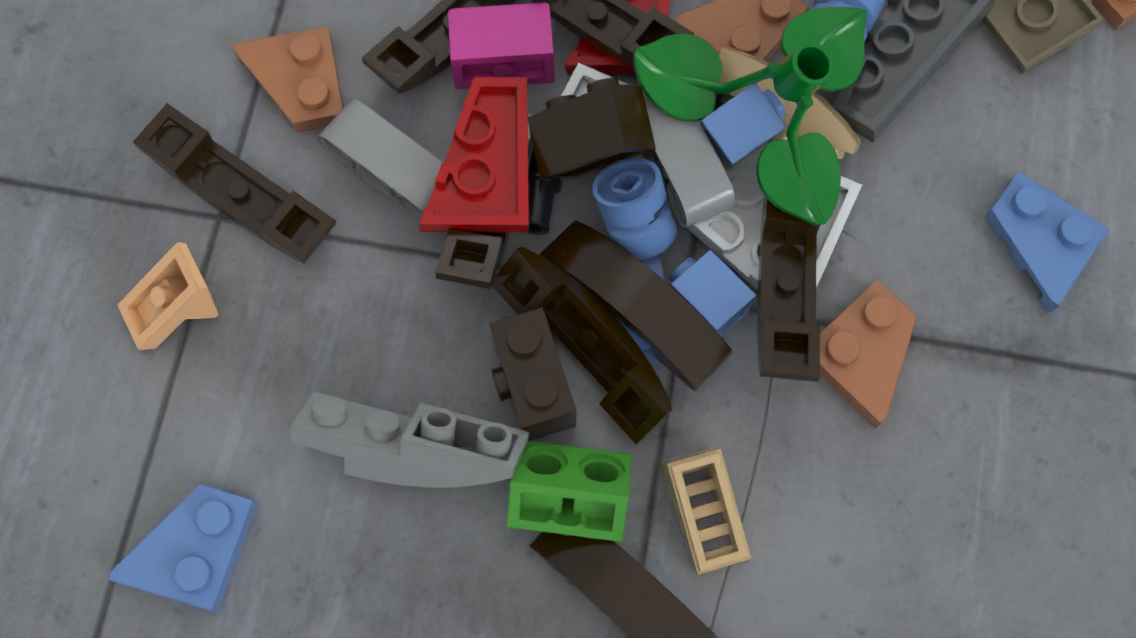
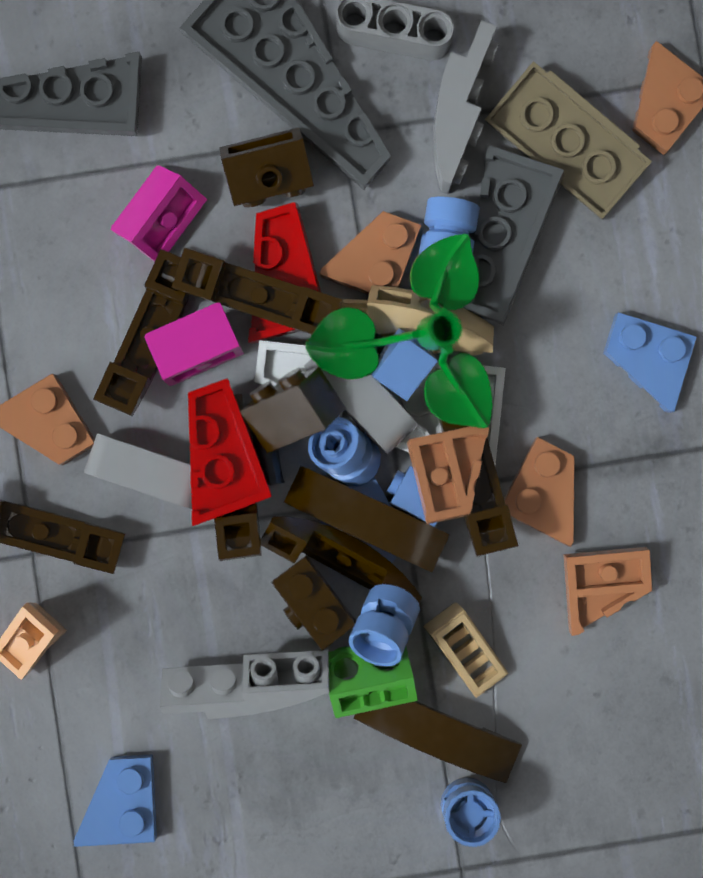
camera: 20 degrees left, 15 degrees up
(612, 423) = (384, 625): none -> medium blue wheel
(756, 263) = (447, 471): none -> nougat wing
(911, 483) = (603, 582): none -> nougat wing

